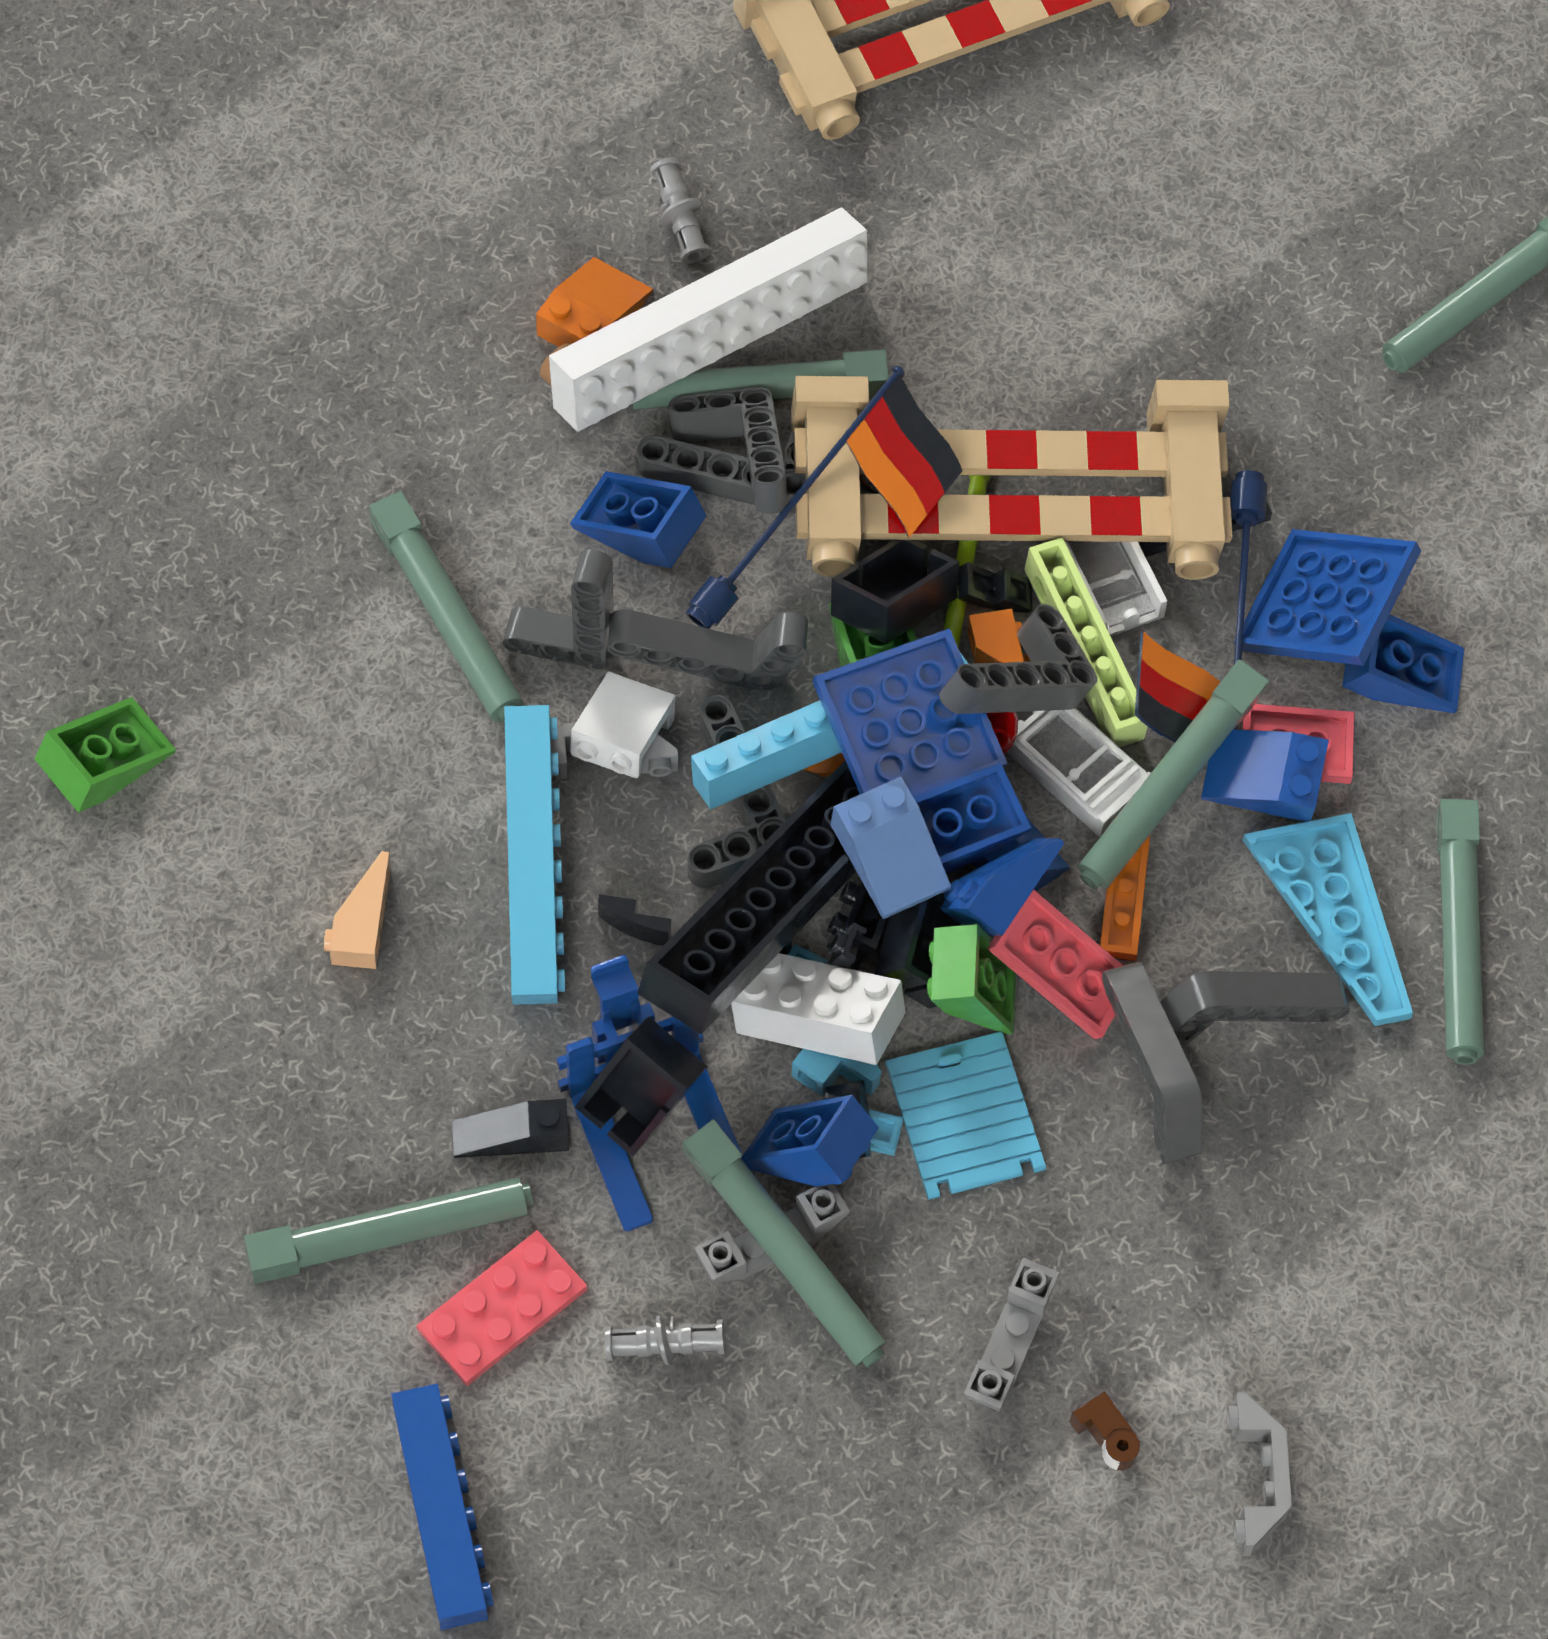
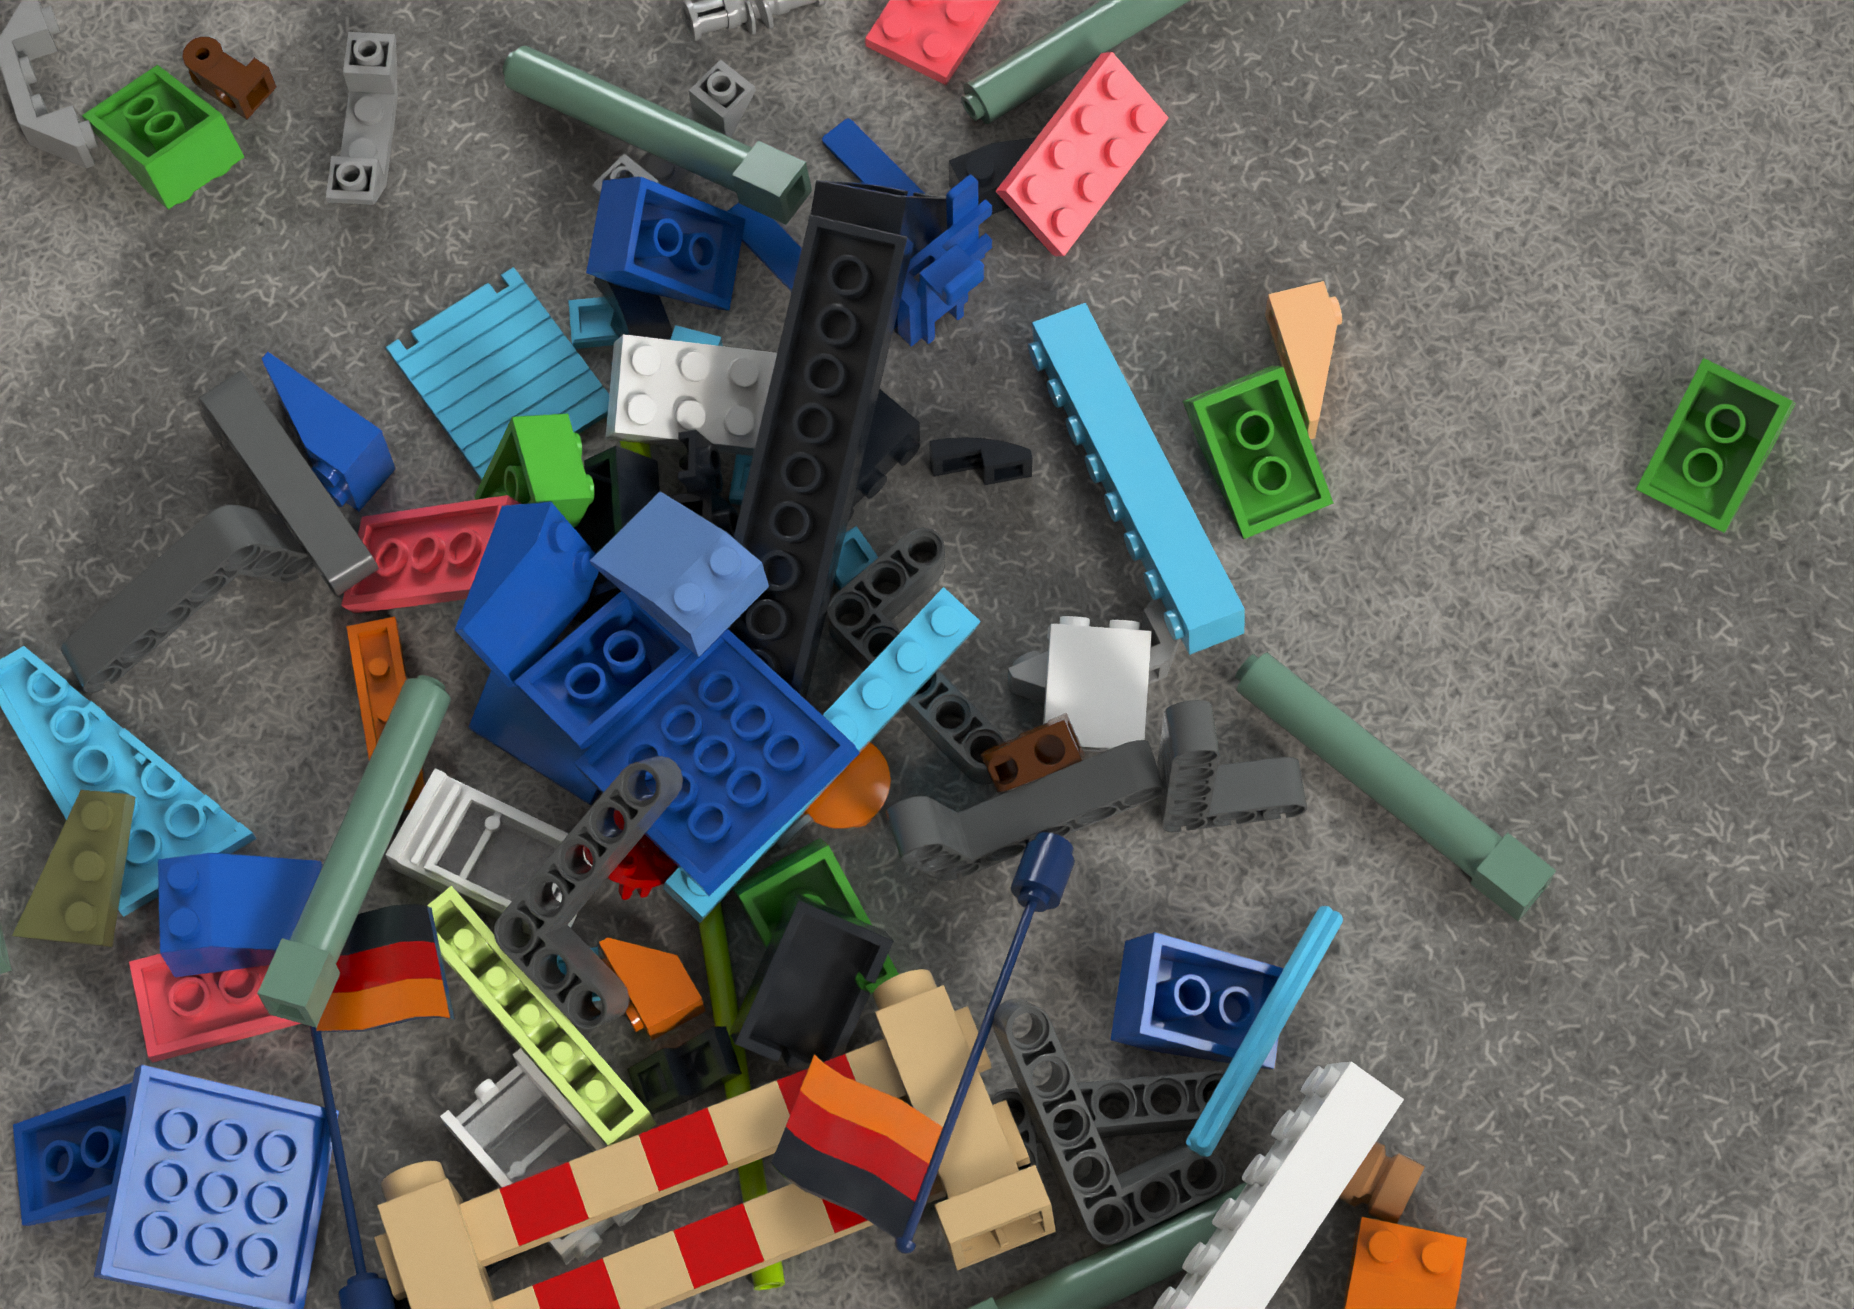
camera: 165 degrees right, 5 degrees up
(431, 862) = (1259, 450): none -> bright green slope
(461, 1116) = (1082, 154): none -> coral plate
(604, 476) = (1264, 1032): none -> medium azure axle
(685, 678) = (1033, 754): none -> reddish brown leg
(1106, 1079) = (340, 444): none -> blue slope
(1173, 1398) = (165, 136): none -> bright green slope
(1371, 840) = (83, 875): none -> olive wing

